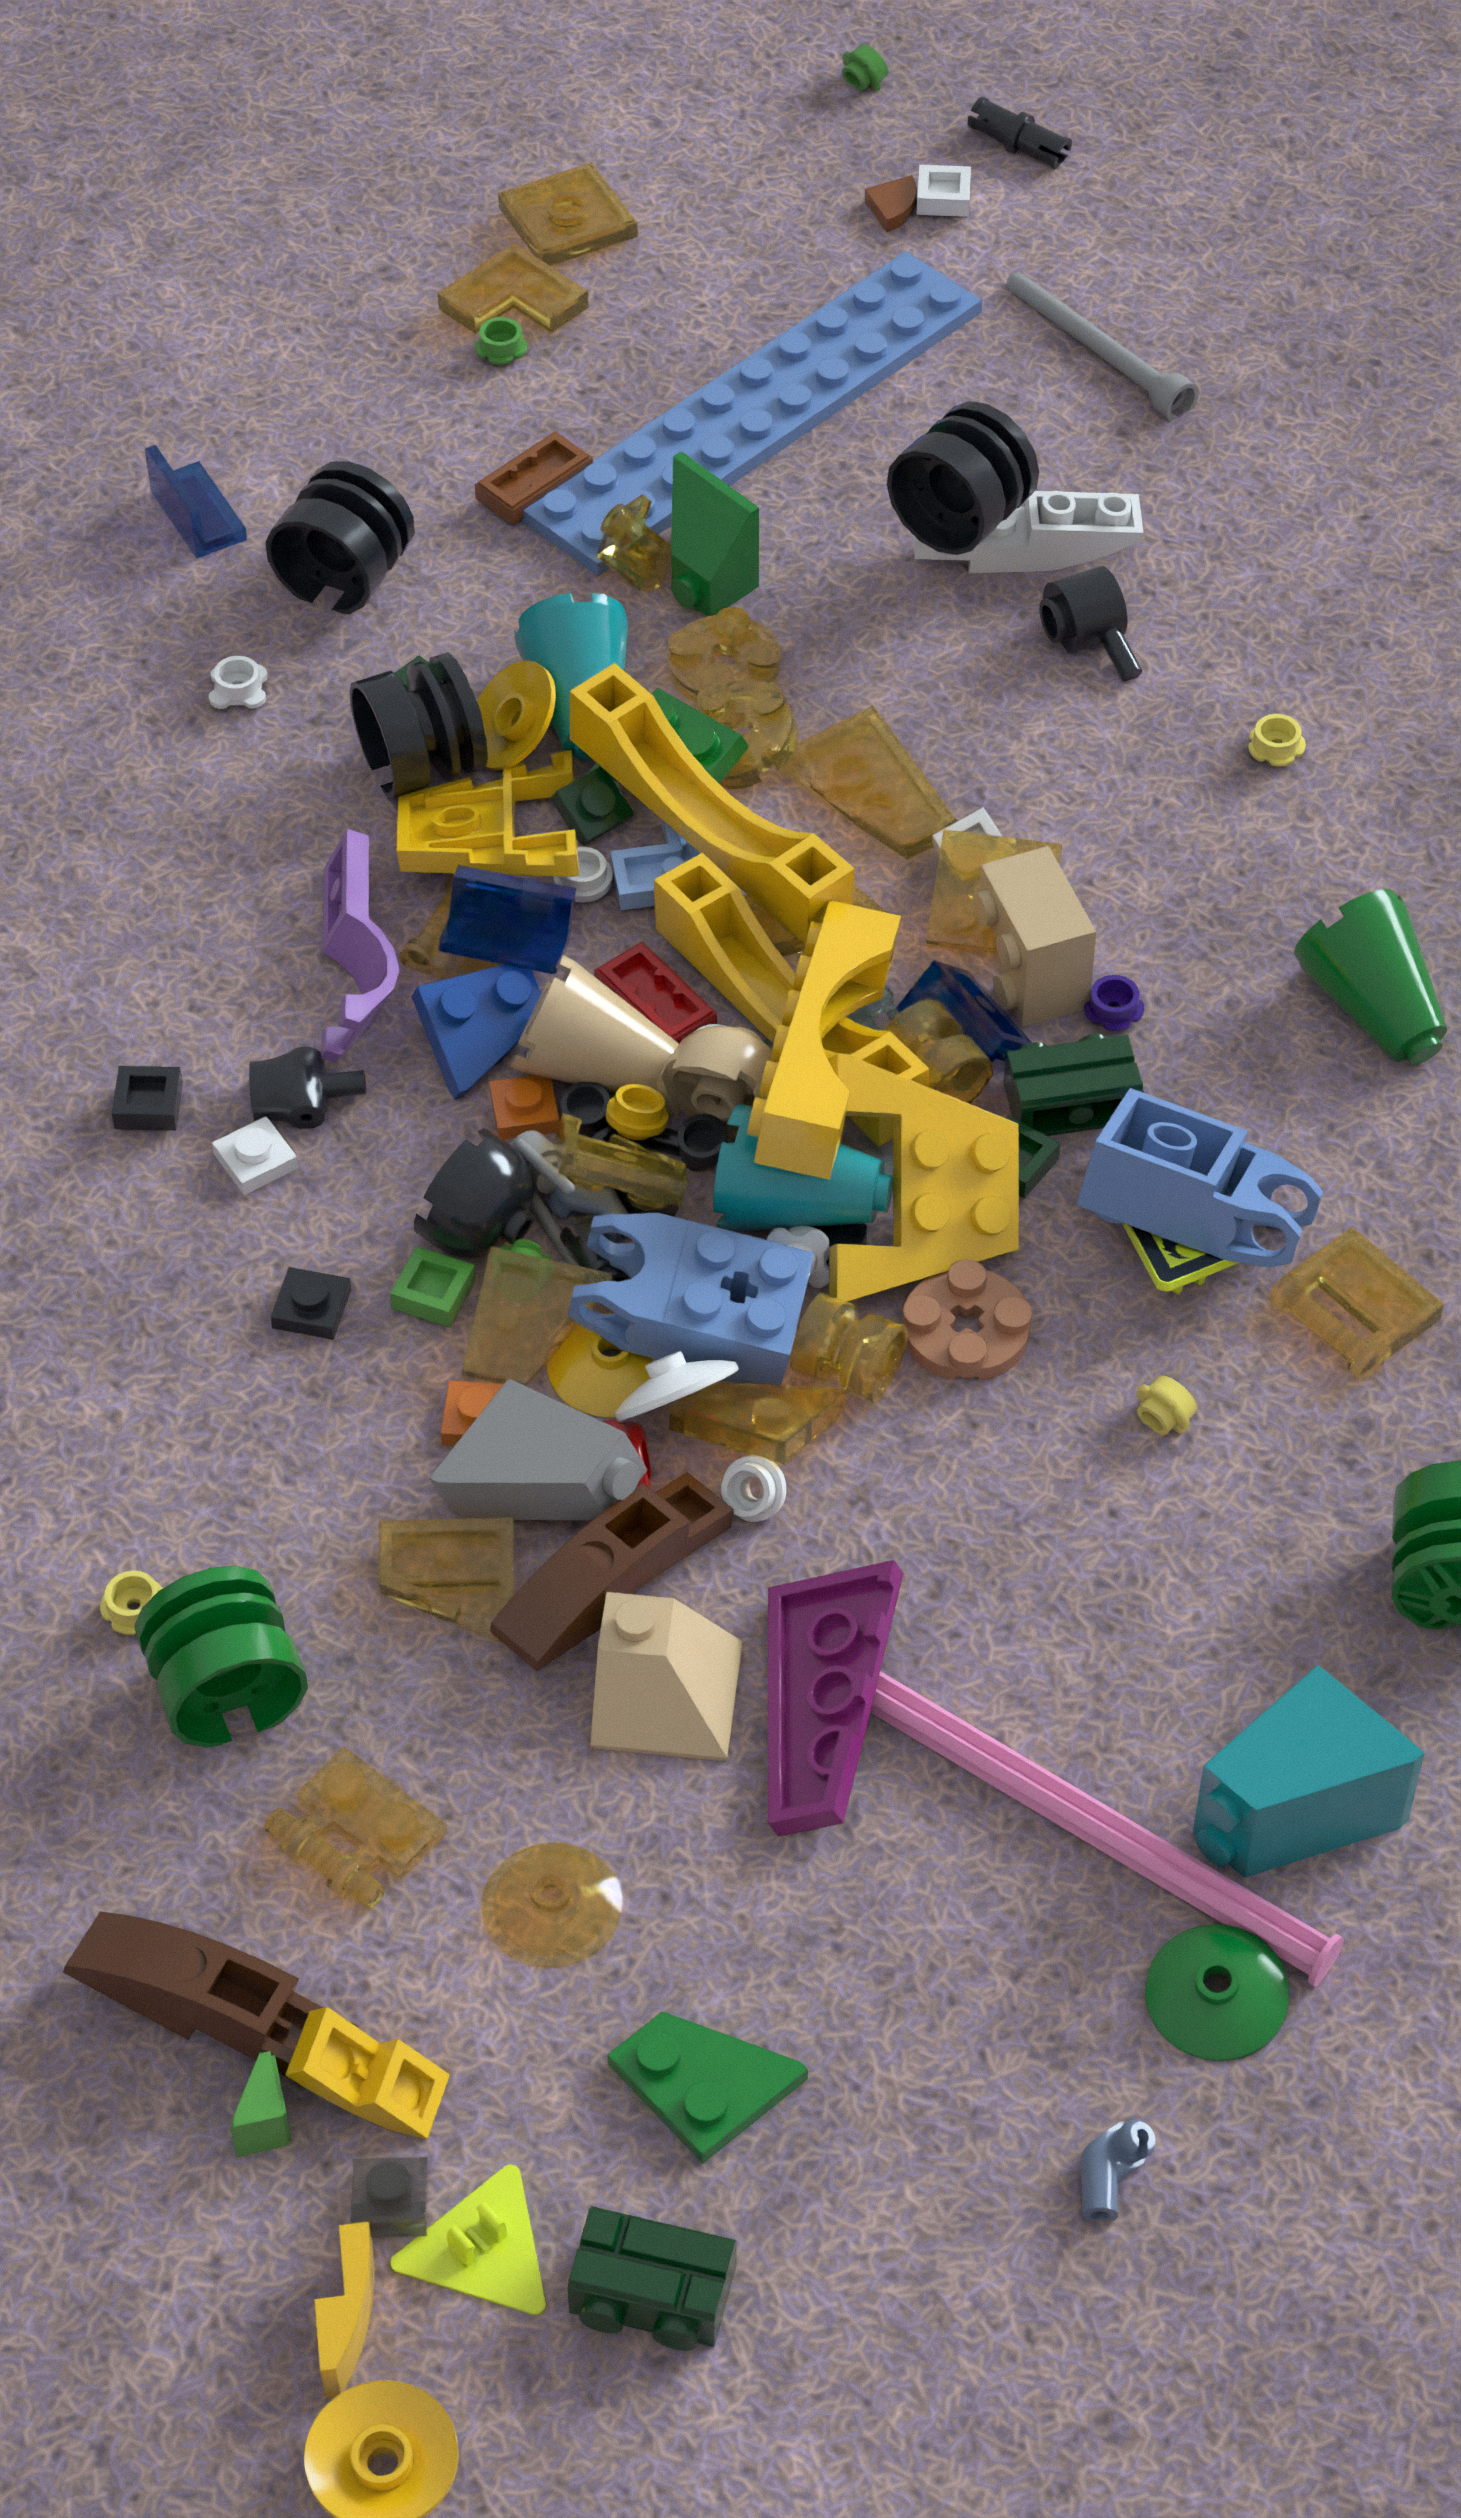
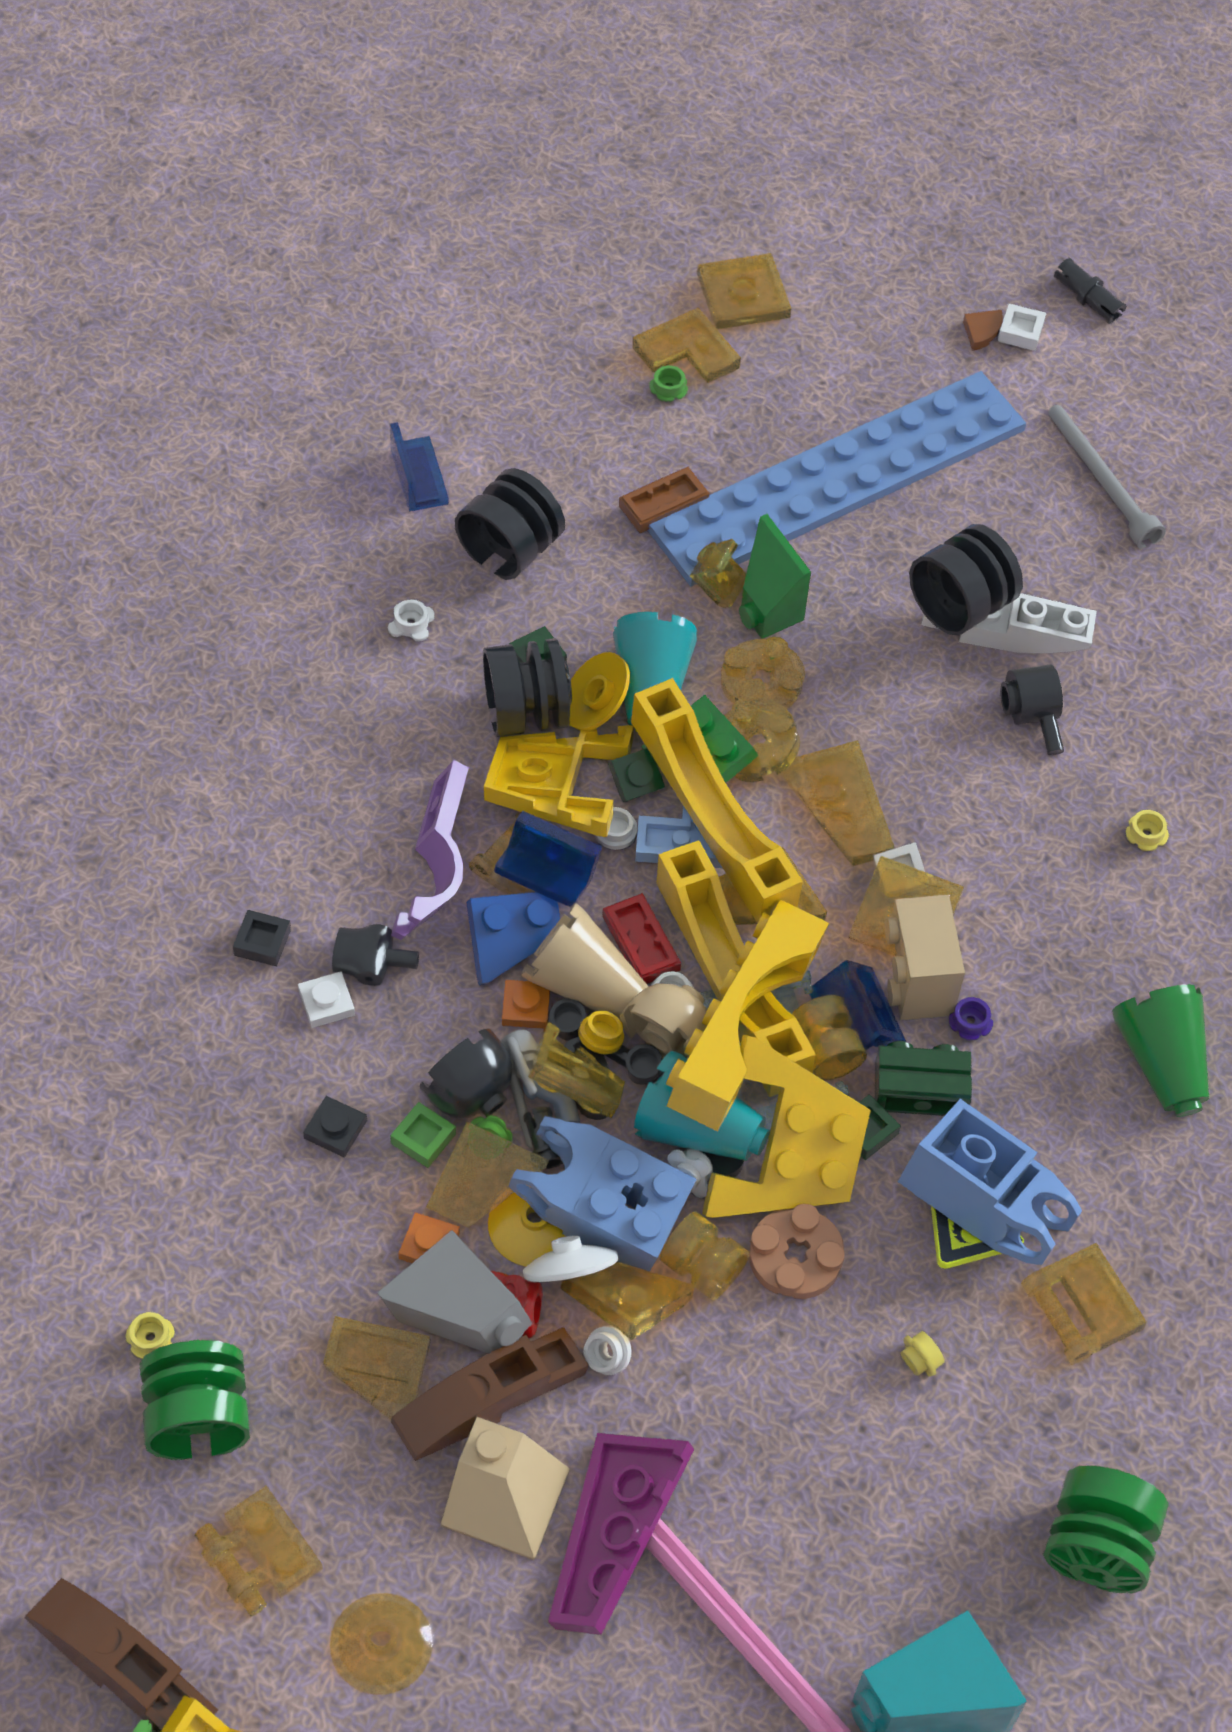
camera: 10 degrees right, 5 degrees up
(864, 67) = (990, 214): bright green plate -> none

